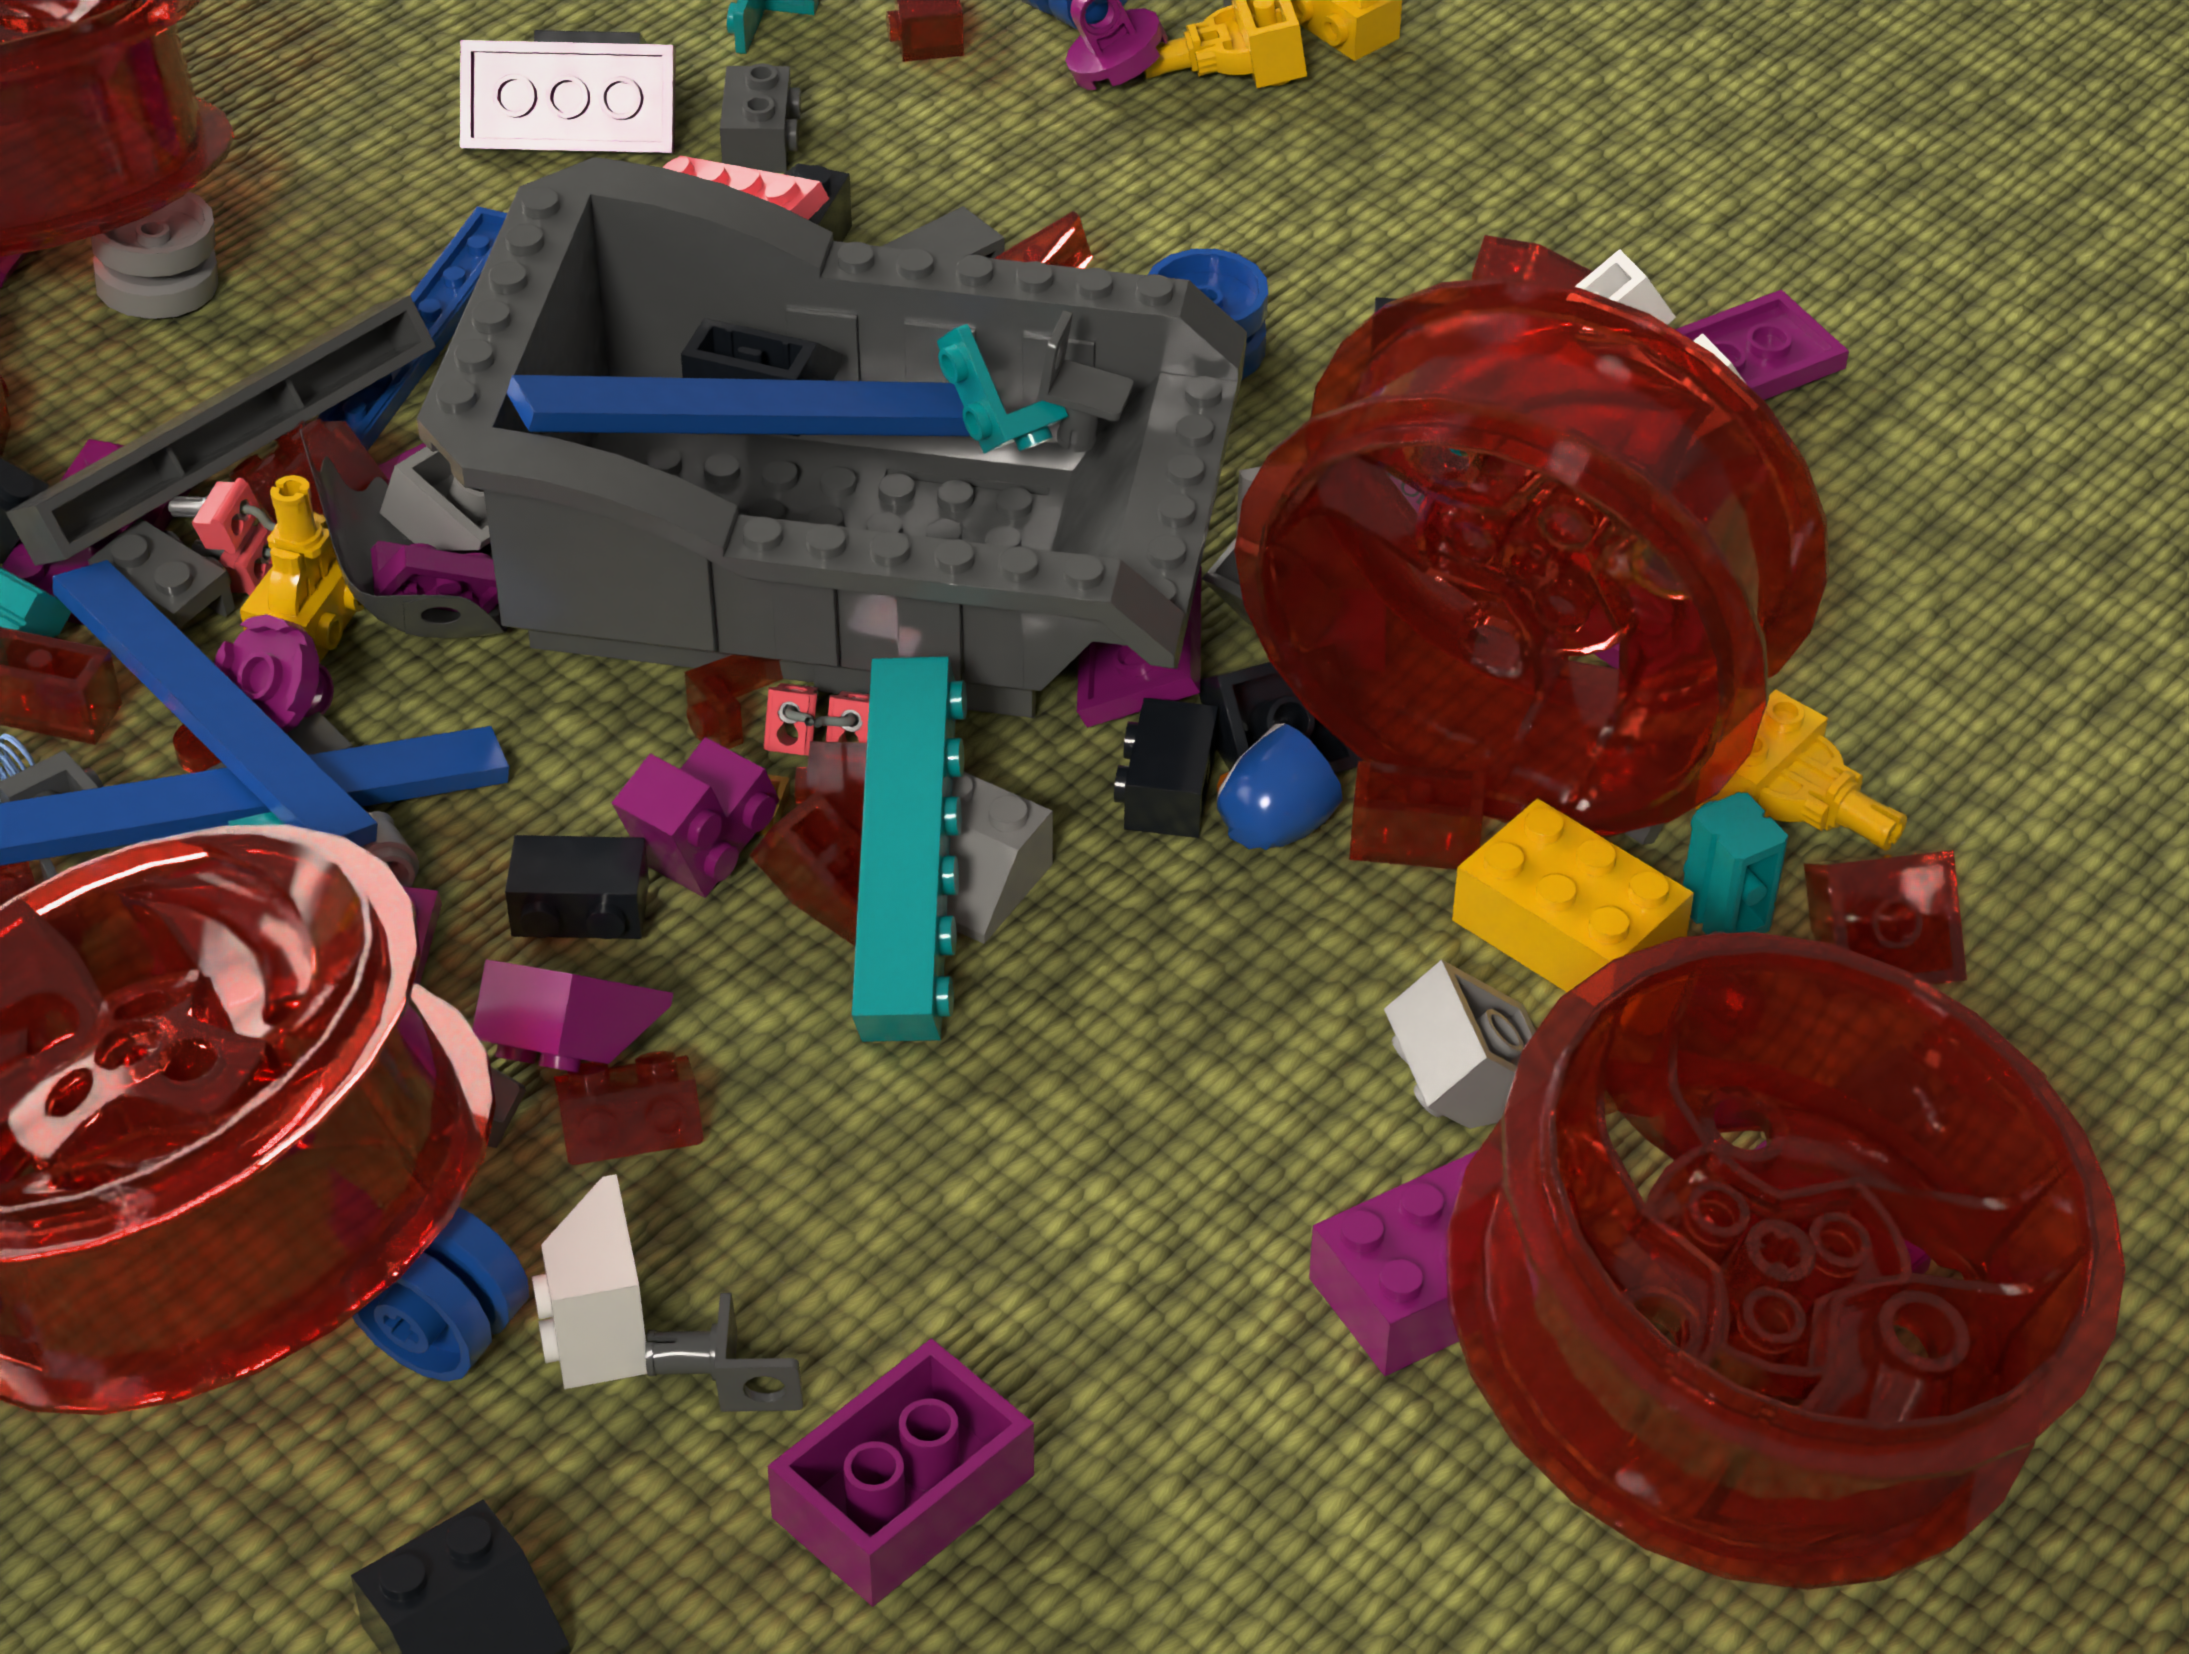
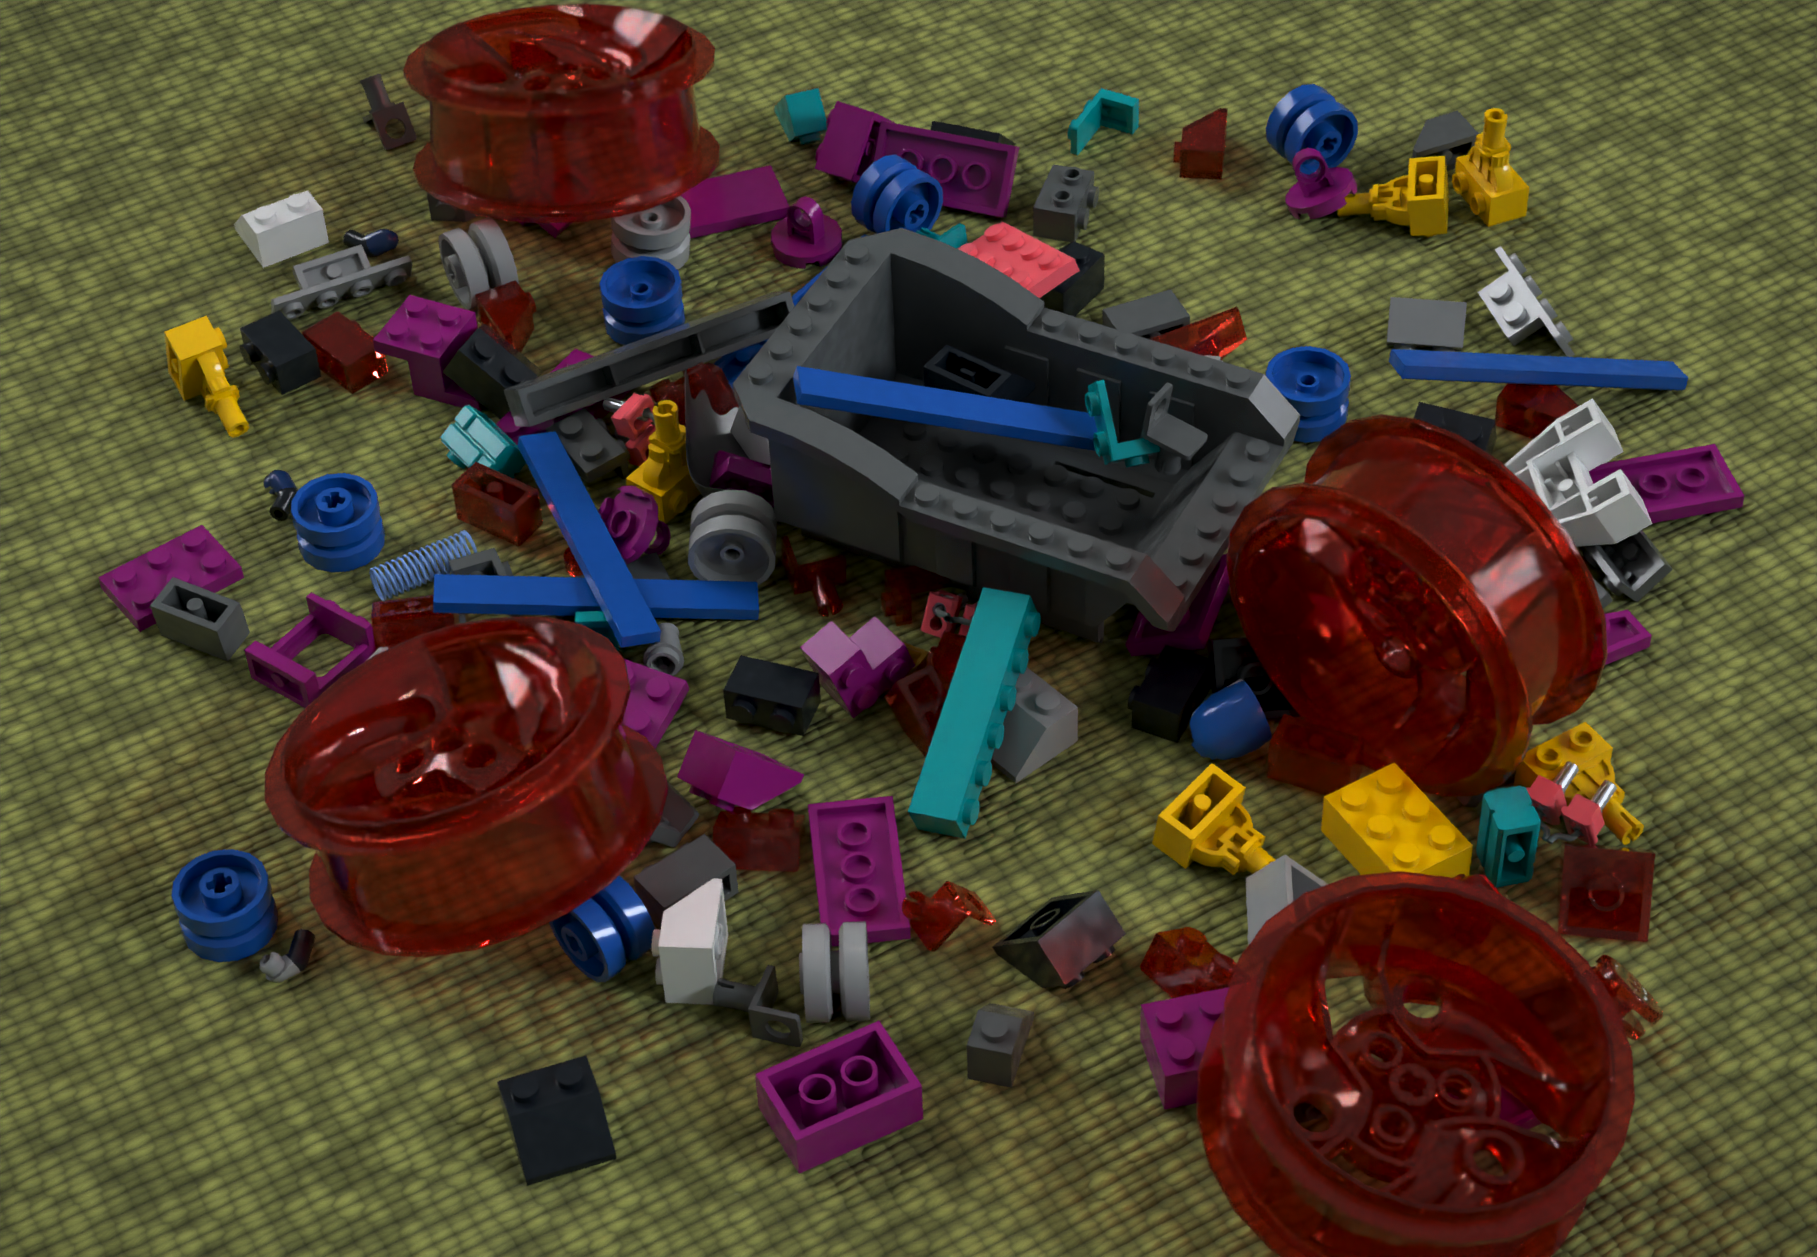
camera: 20 degrees right, 0 degrees up
(173, 349) = (641, 298): none -> blue wheel
(271, 191) = (735, 201): none -> magenta tile
(327, 58) = (802, 116): none -> teal slope
(390, 223) = (806, 235): none -> magenta tile
(416, 81) = (848, 142): none -> magenta brick
(440, 665) = (732, 537): none -> light grey wheel
(512, 140) = (896, 196): none -> blue wheel
(541, 1187) = (682, 873): none -> dark grey brick
(582, 701) = (816, 577): none -> clear red bracket
(801, 1123) = (859, 867): none -> magenta plate
(833, 1279) = (834, 972): none -> light grey wheel
(954, 1158) = (943, 913): none -> clear red bracket
(1109, 1336) = (997, 1043): none -> dark grey slope
(1146, 1156) = (1062, 939): none -> black slope
(1309, 946) = (1211, 826): none -> yellow brick
(1330, 198) = (1426, 324): none -> light grey slope
(1347, 1157) = (1186, 963): none -> clear red bracket
(1443, 156) = (1516, 305): none -> light grey bracket
(1511, 230) = (1537, 369): none -> blue tile
(1828, 822) = (1581, 816): none -> coral piece

